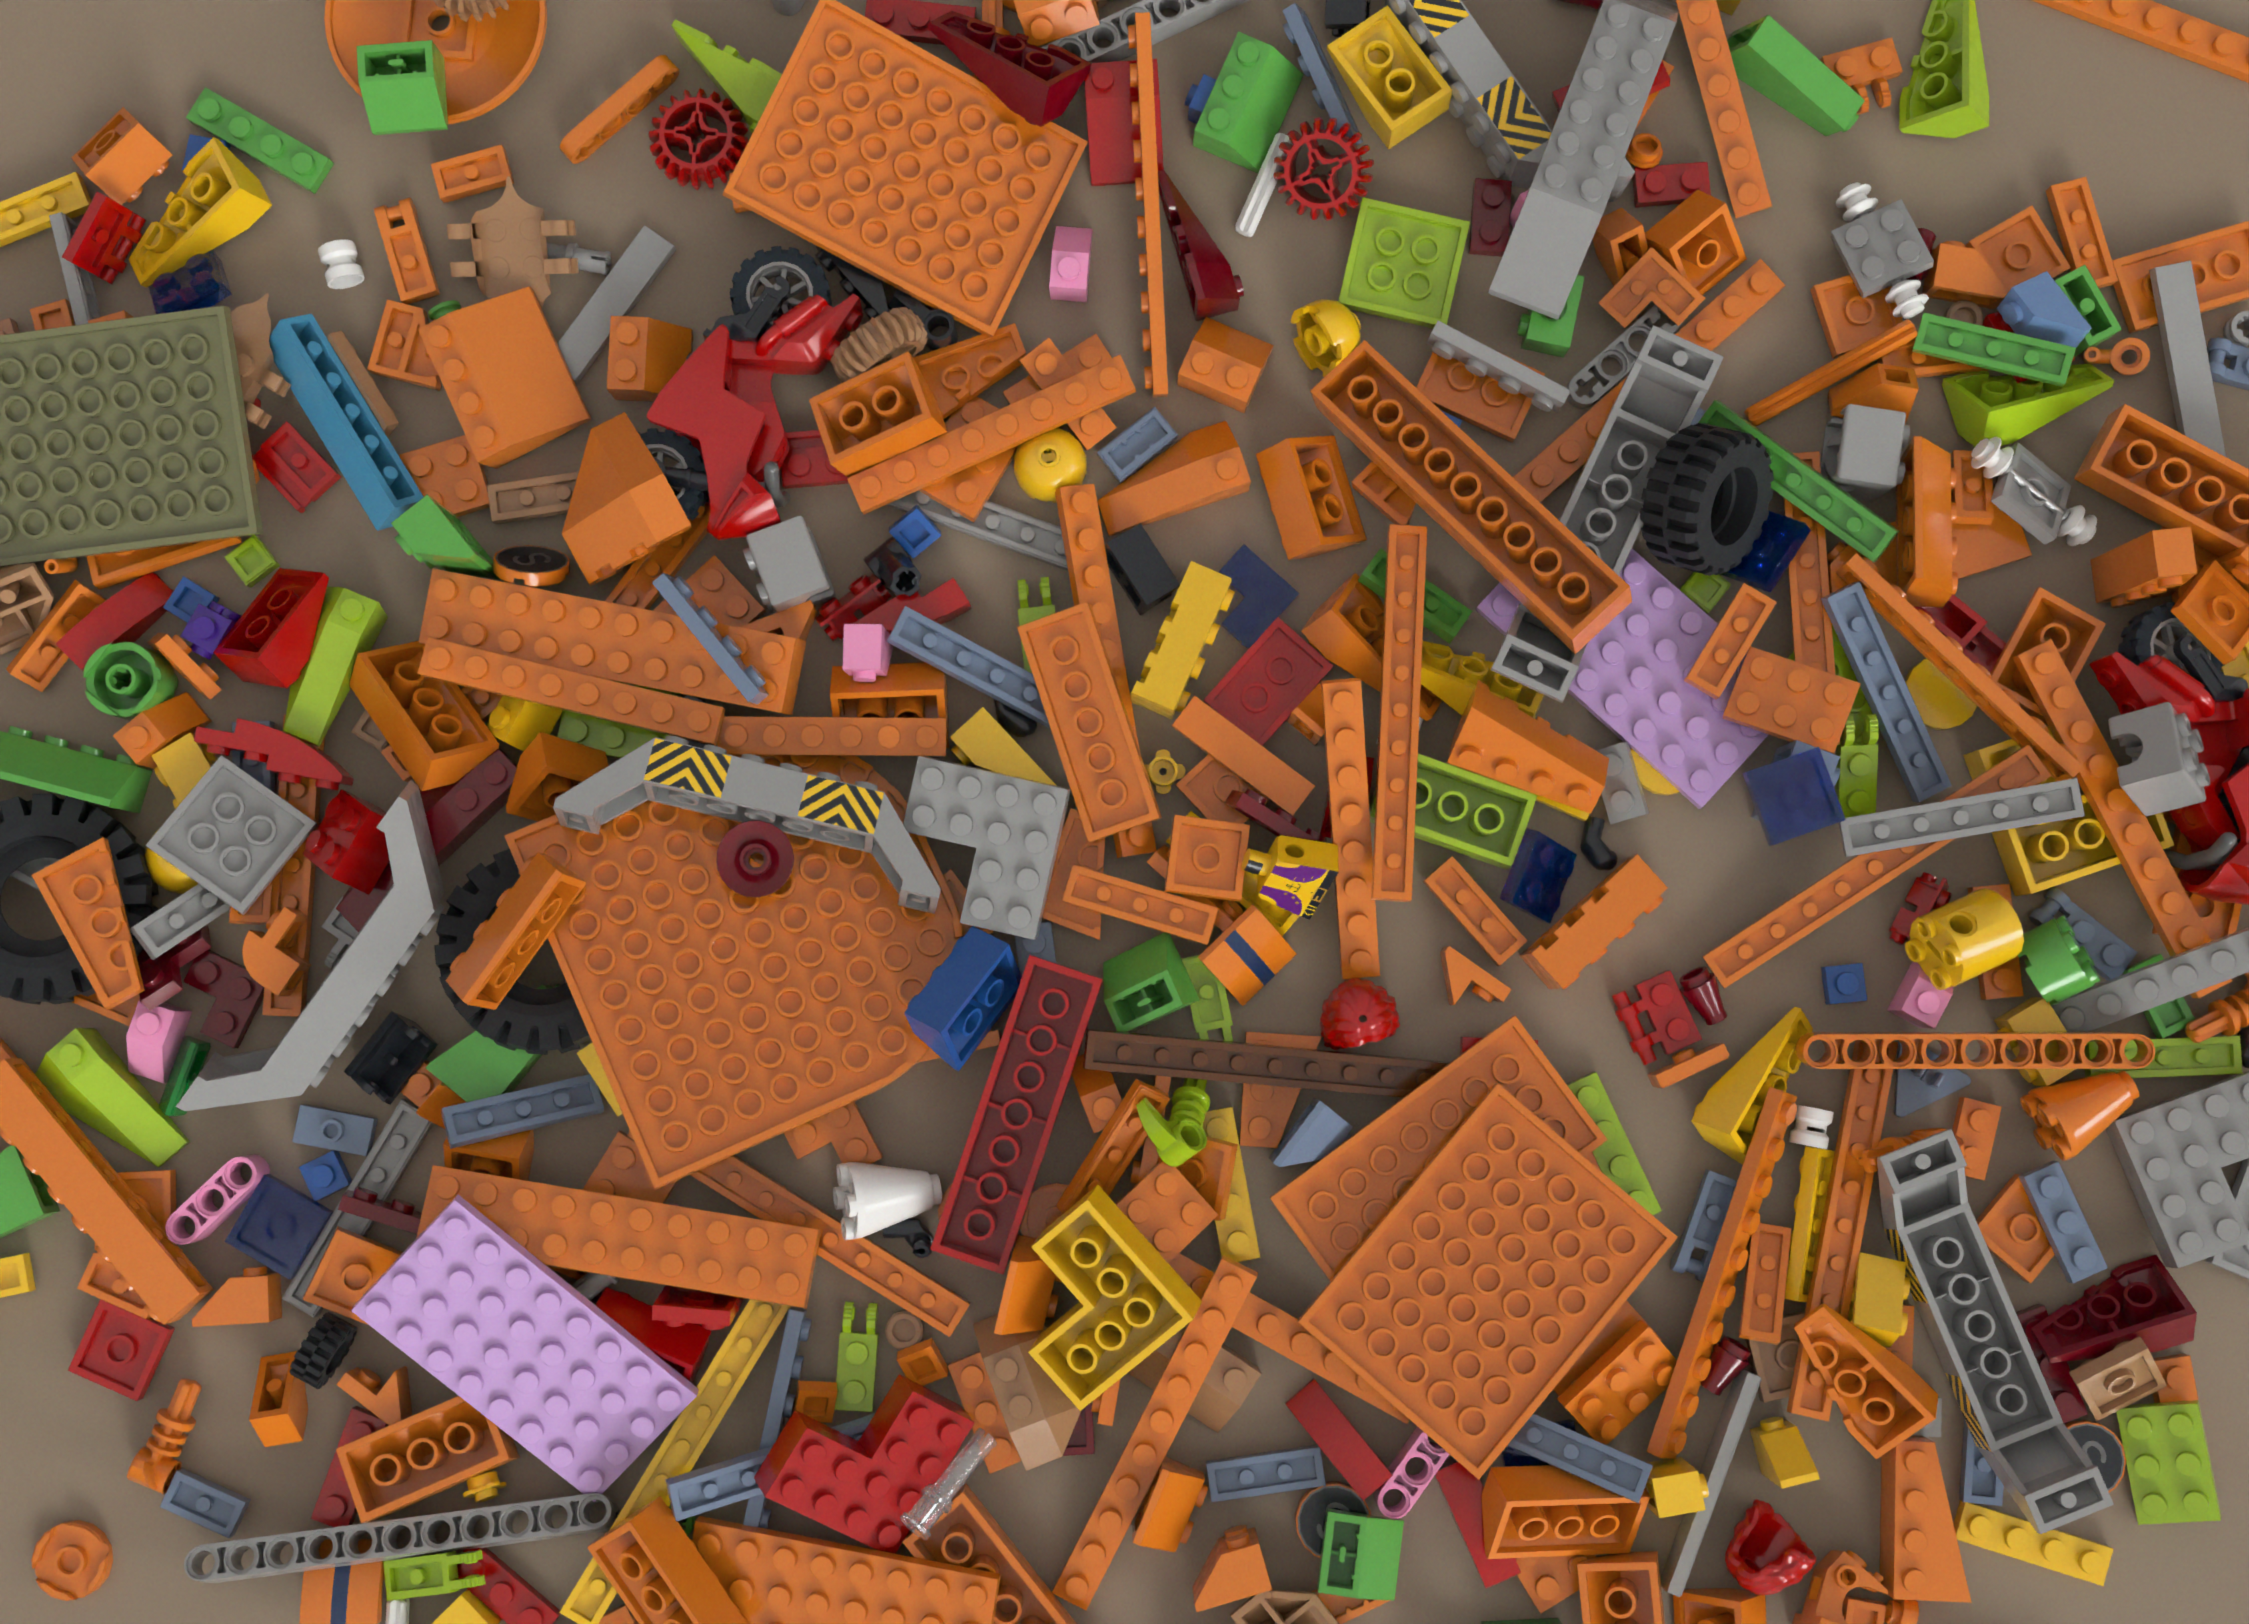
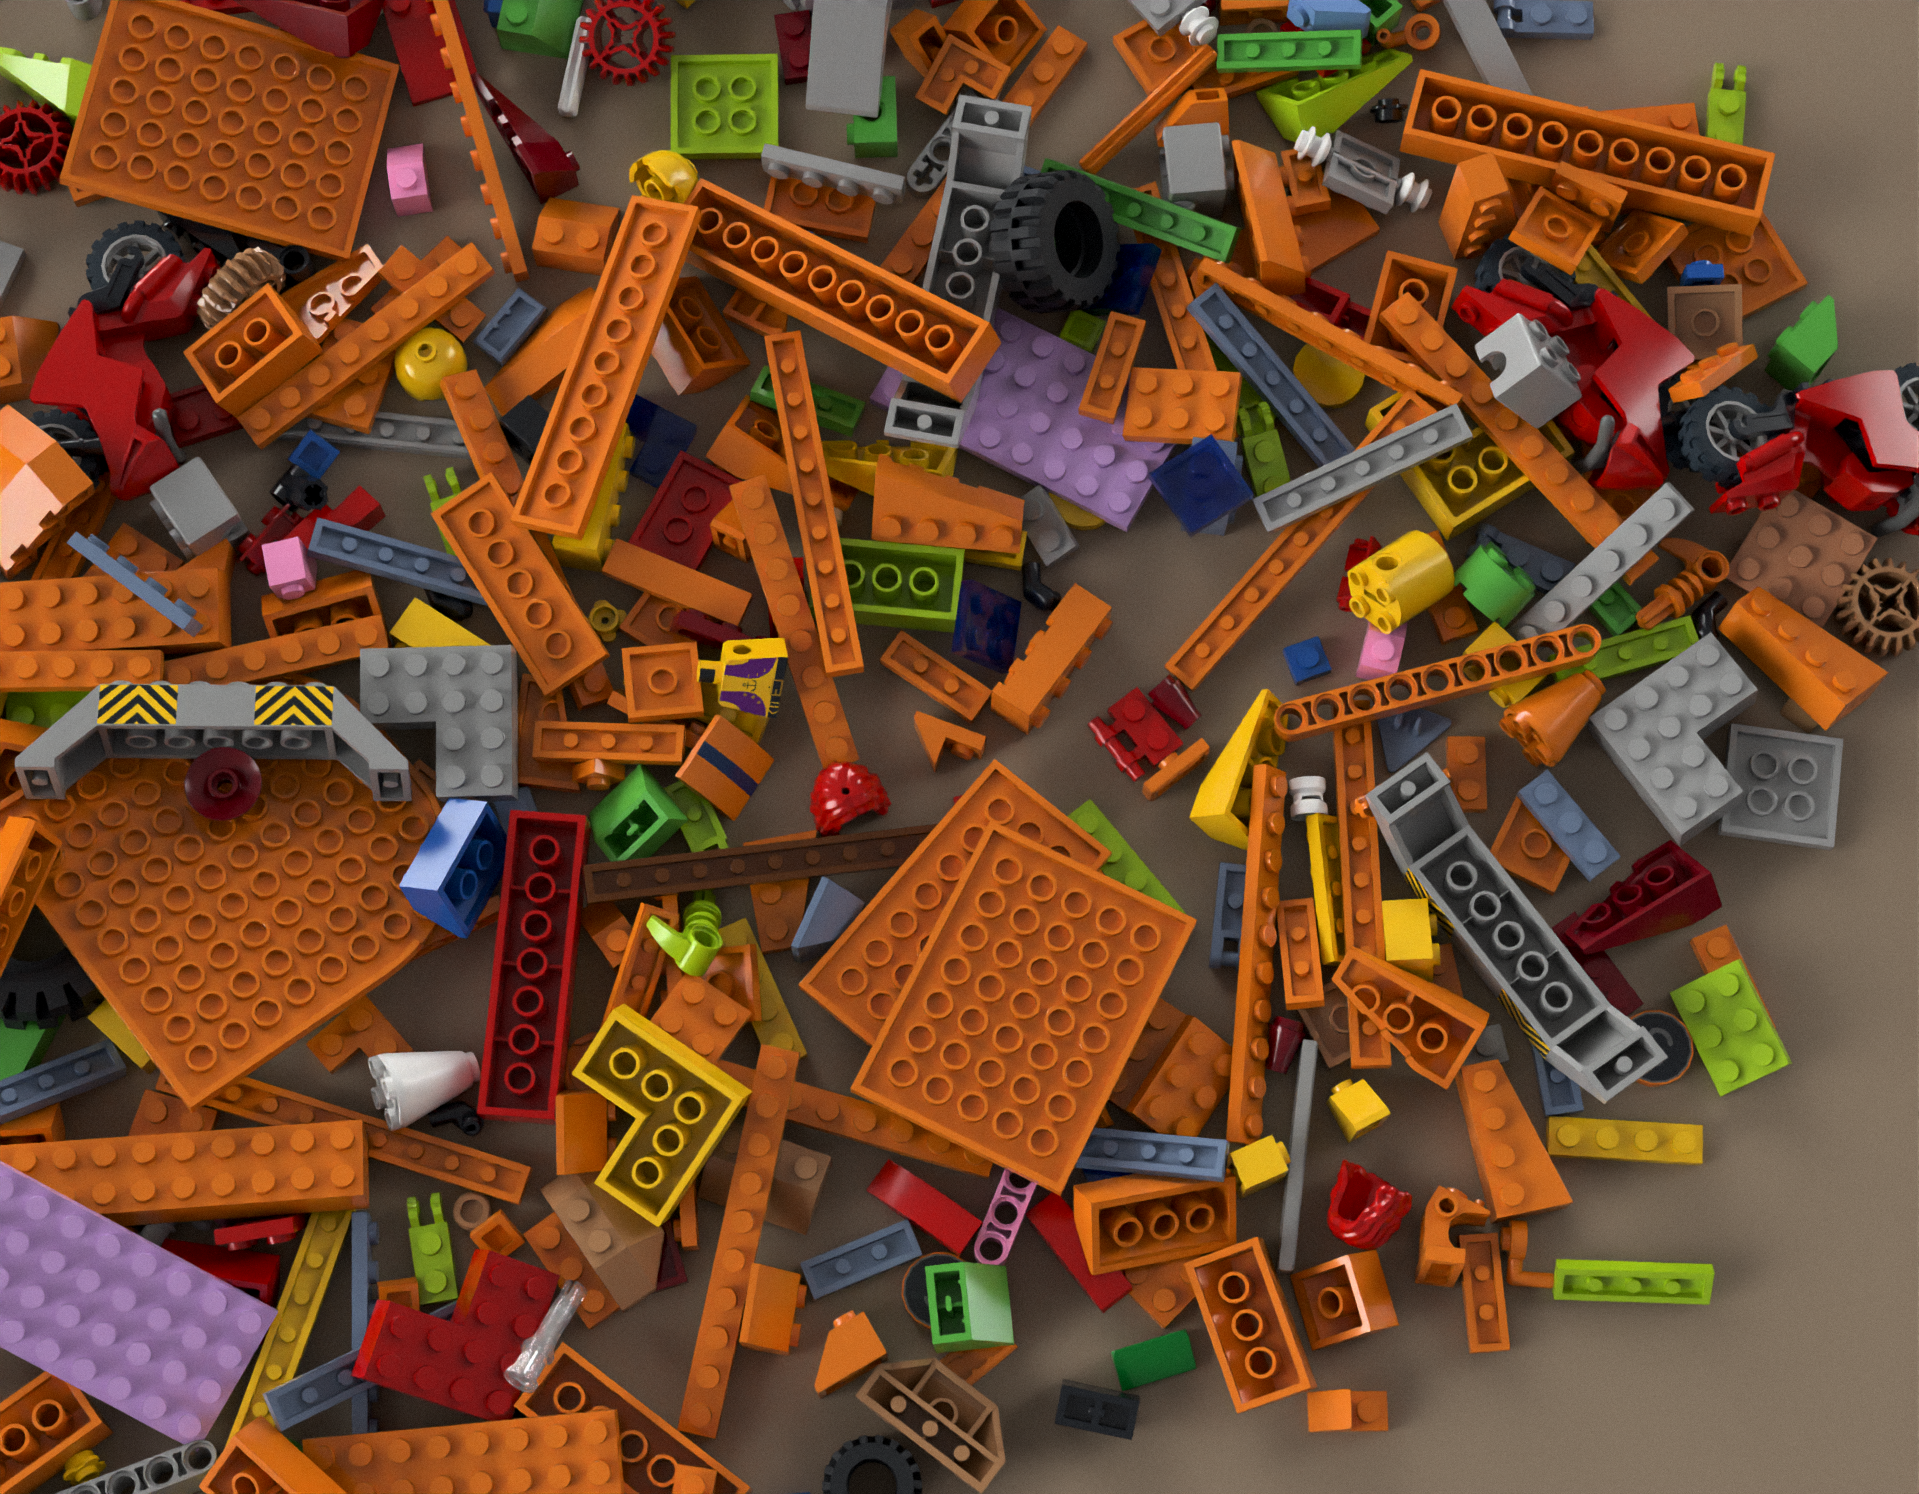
camera: 15 degrees left, 10 degrees down
(1122, 931) = (598, 774): none -> orange plate
(1226, 521) = (606, 367): none -> orange plate
(2073, 432) = (1389, 111): none -> black plate
(2118, 1378) = (1658, 957): medium nougat plate -> none

